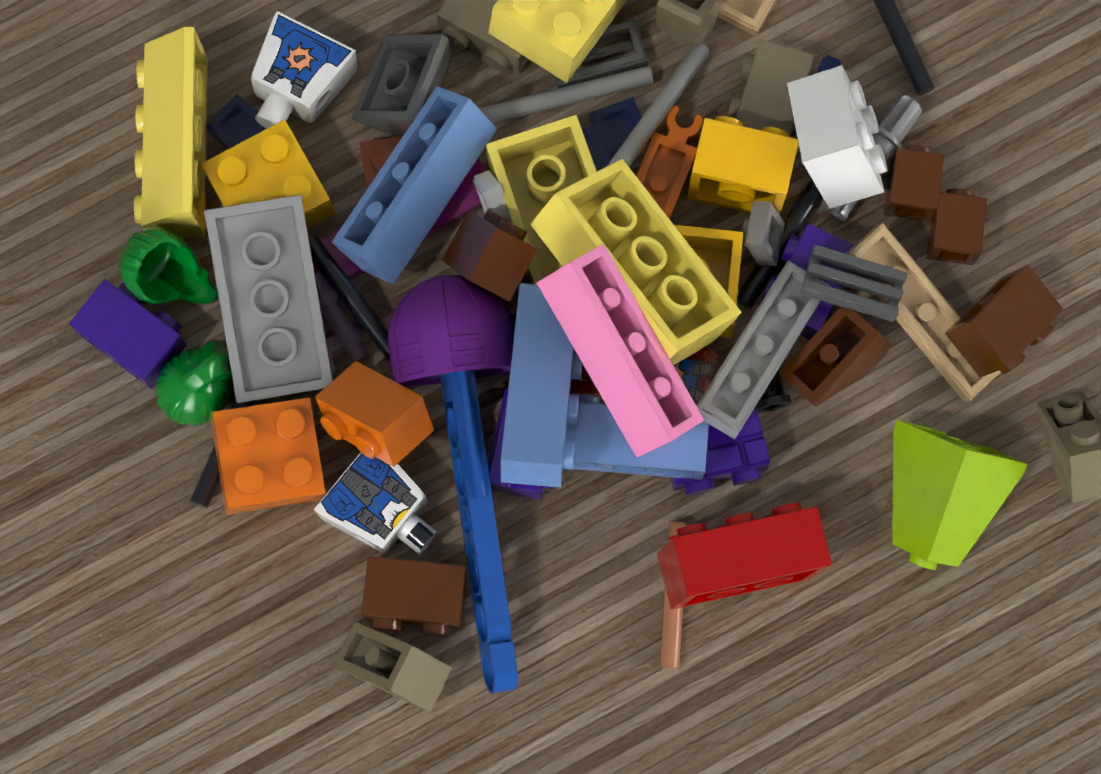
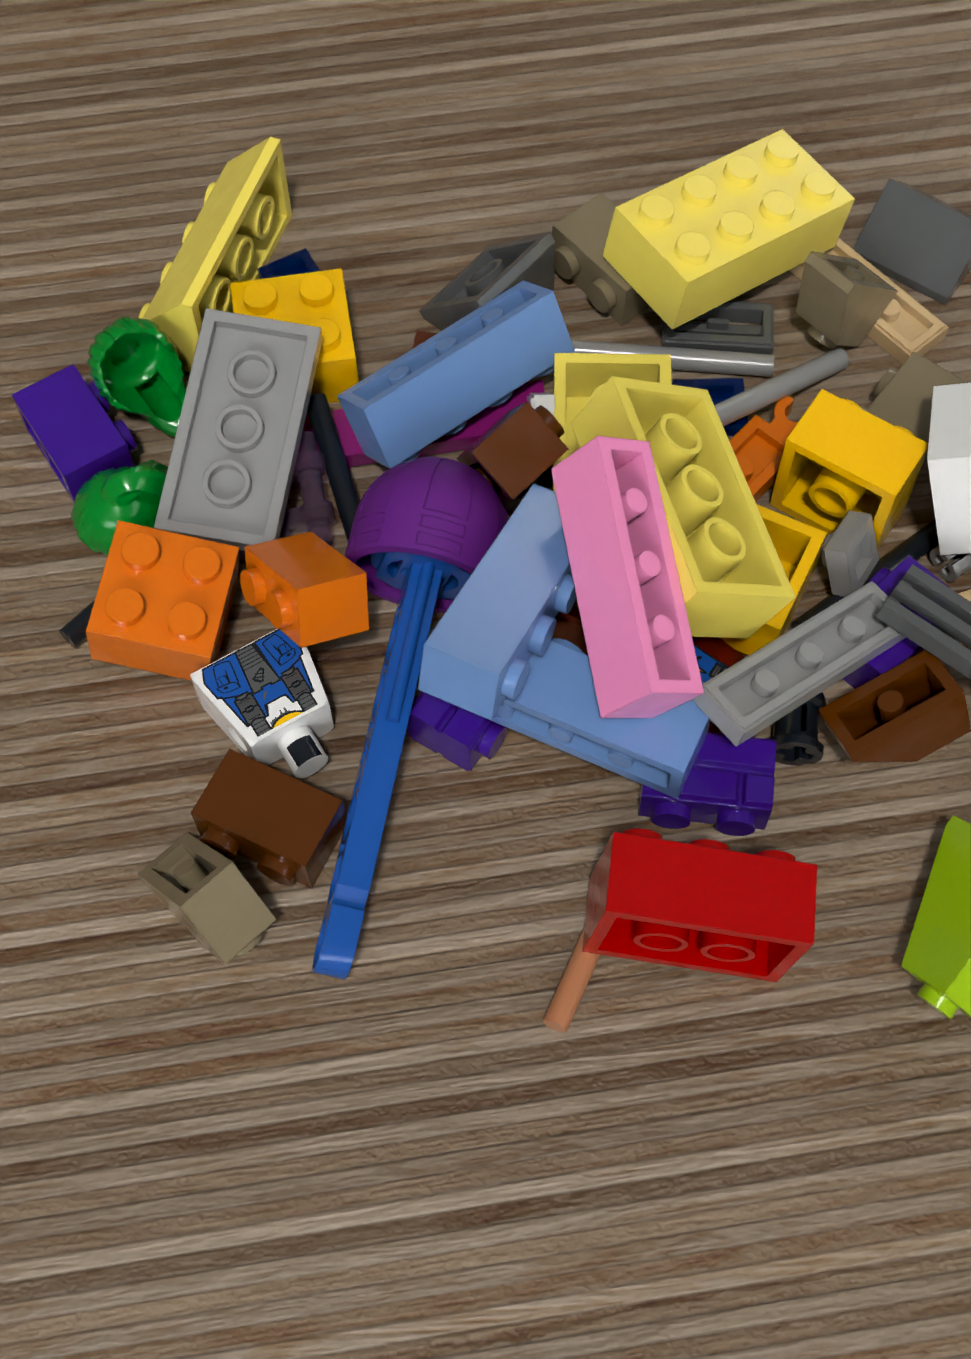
camera: 20 degrees right, 15 degrees down
(299, 71) = (383, 242): torso -> none

